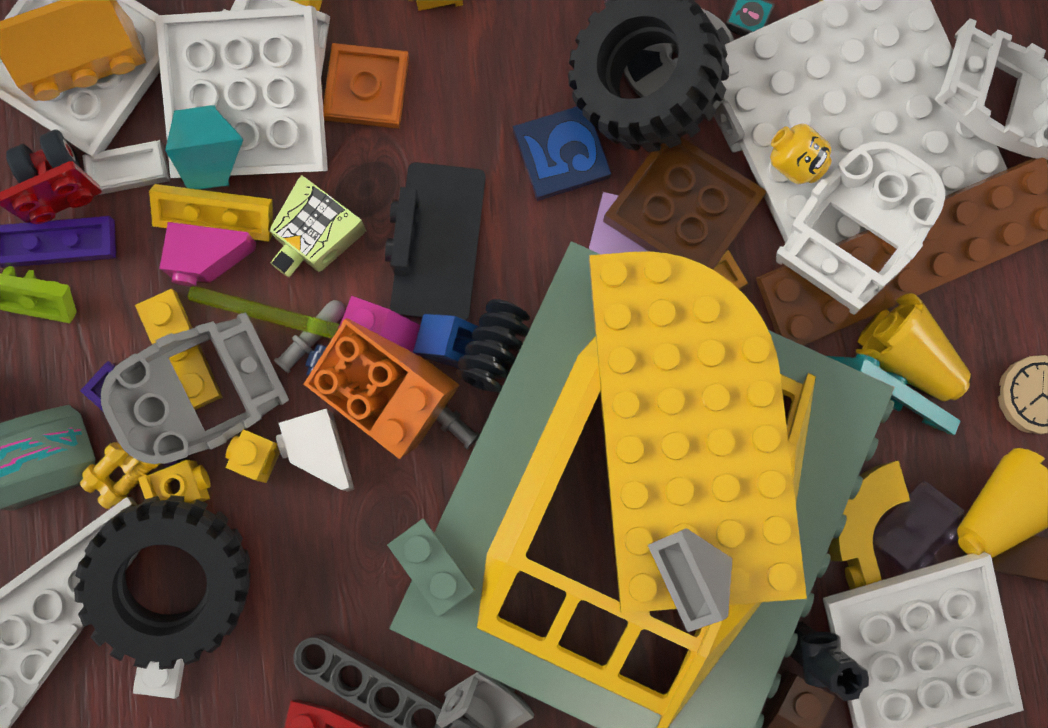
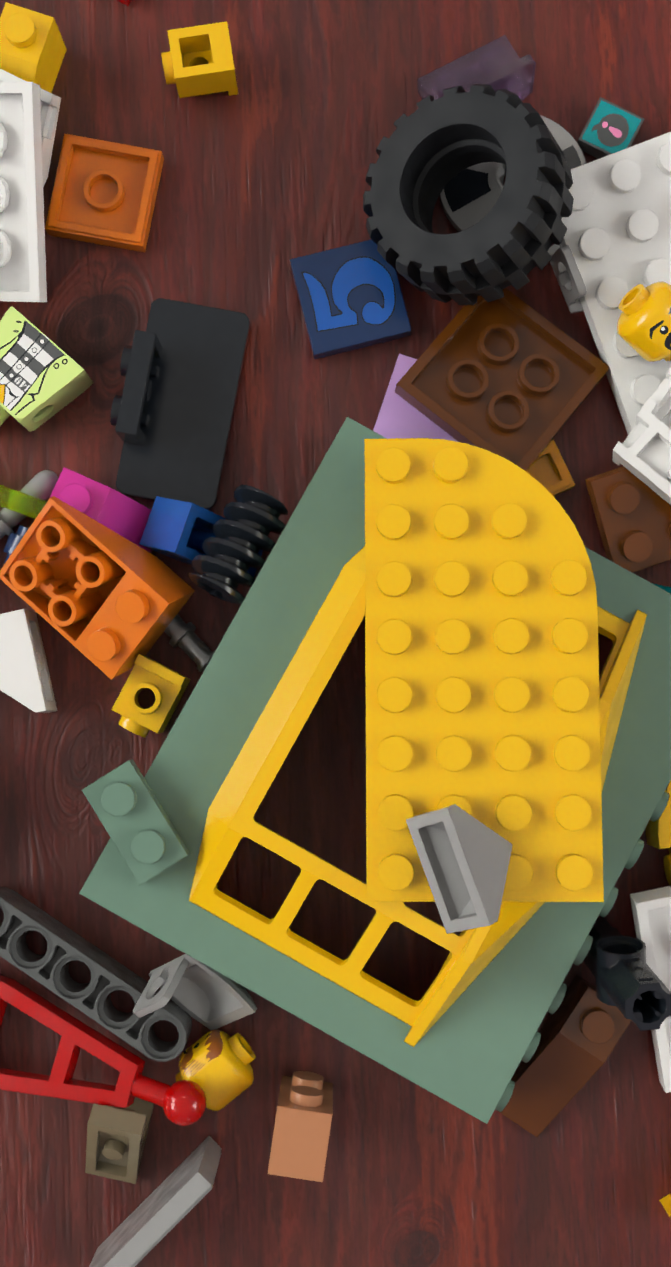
camera: 10 degrees right, 5 degrees up
(443, 463) = (168, 691): none -> yellow brick

